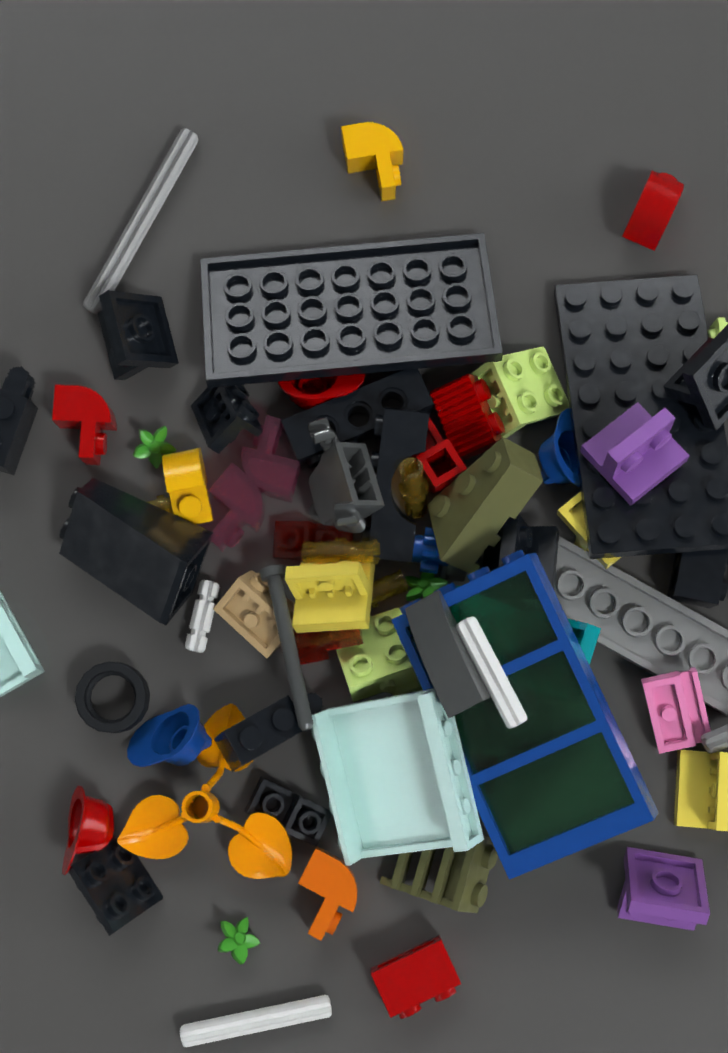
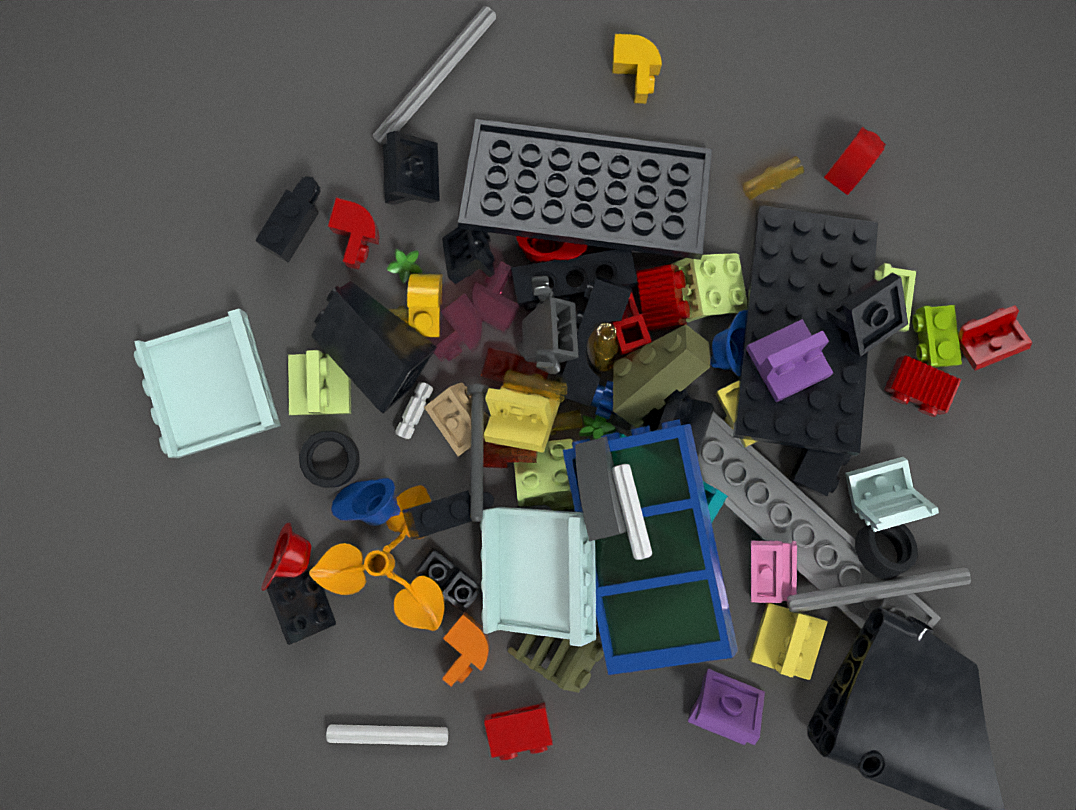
camera: 15 degrees right, 5 degrees up
(79, 612) = (317, 385): none -> yellowish green bracket
(237, 940) = (386, 670): bright green plant -> none
(563, 250) = (773, 178): none -> clear yellow pin

